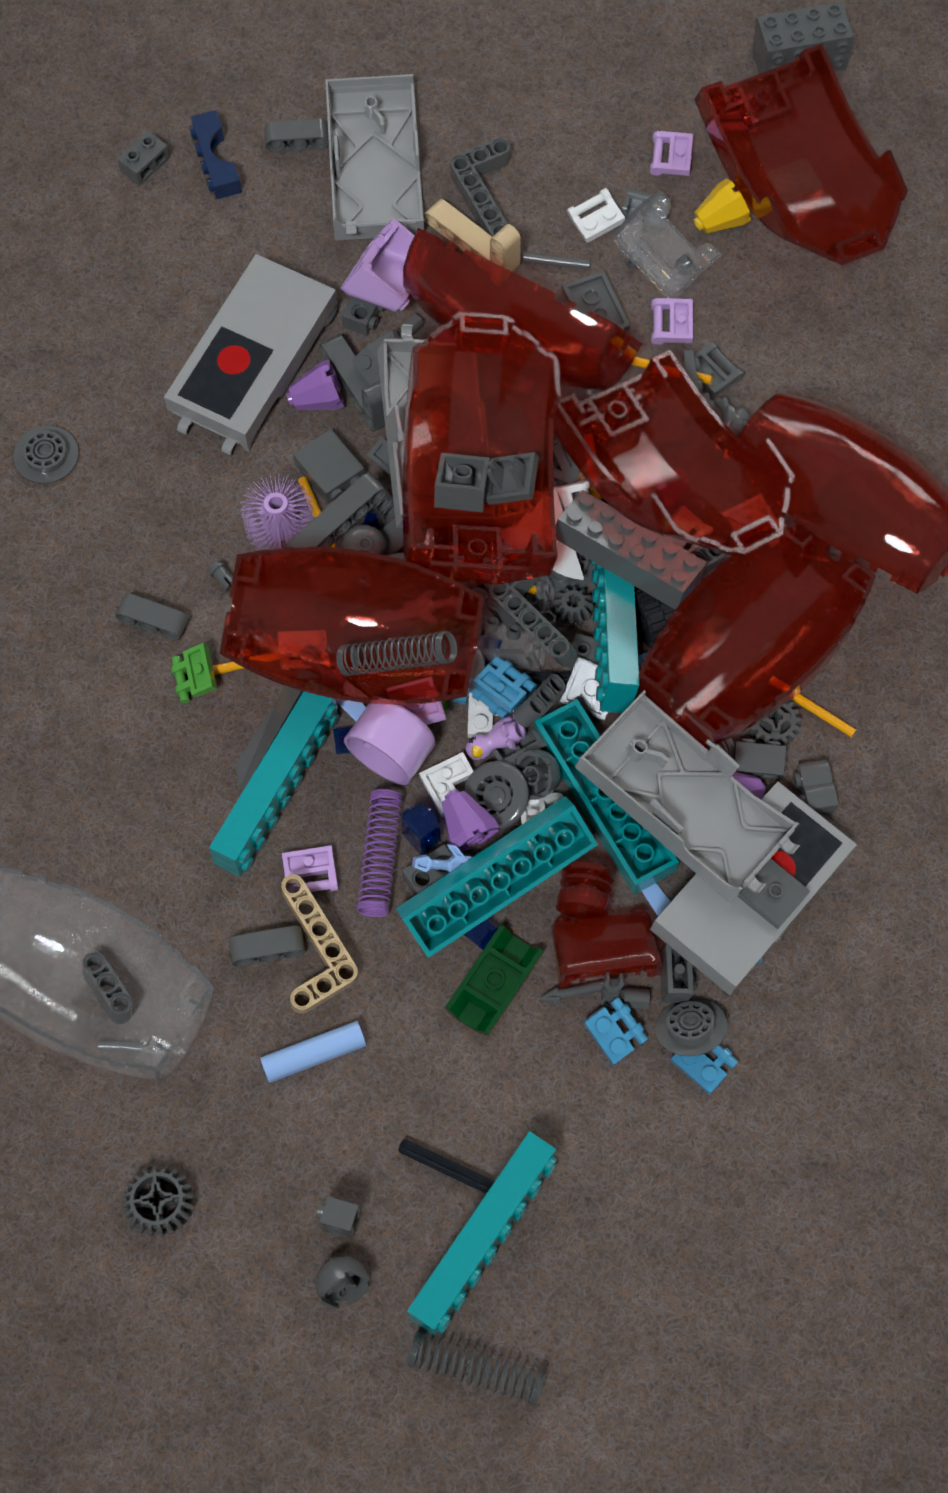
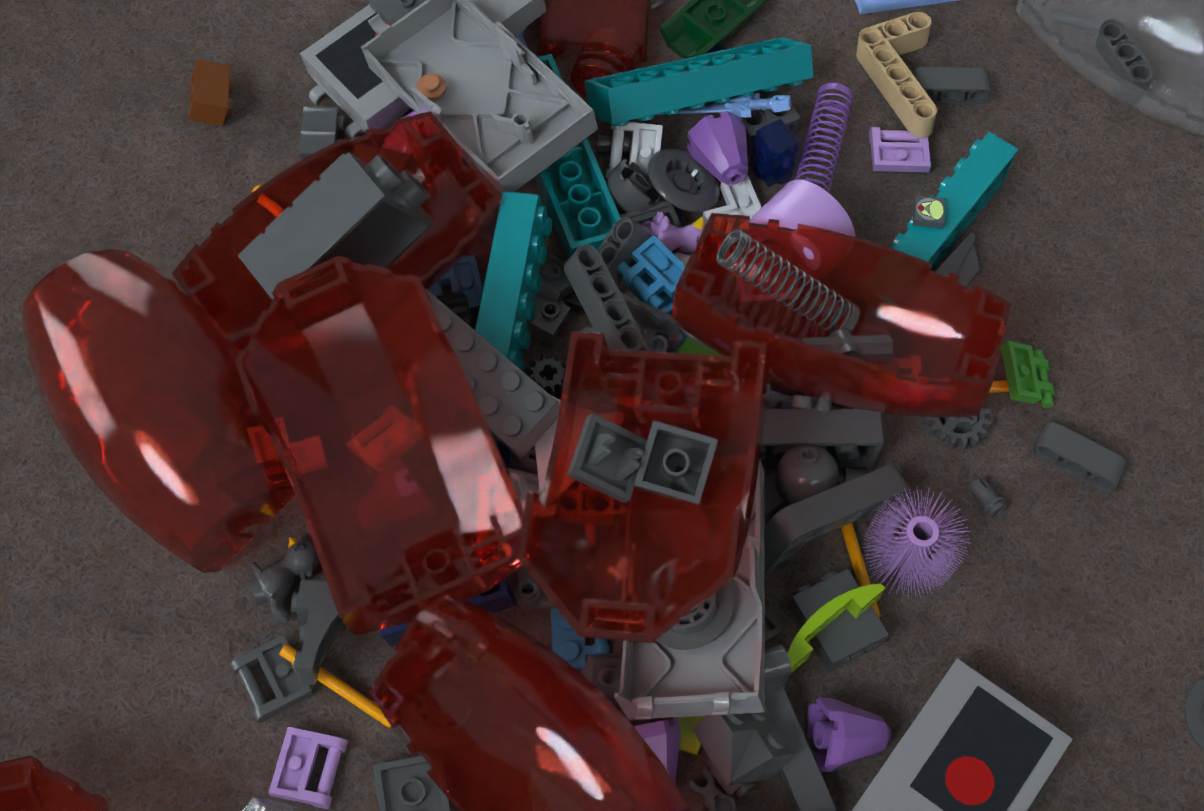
camera: 175 degrees left, 5 degrees down
(285, 765) = (928, 211): none -> tile
(318, 463) = (854, 601): none -> lime slope
(345, 630) = (867, 348): none -> dark grey piece
(726, 793) = (432, 86): none -> nougat plate
(756, 618) = (351, 212): none -> dark grey brick
(924, 805) = (210, 92): none -> dark orange brick

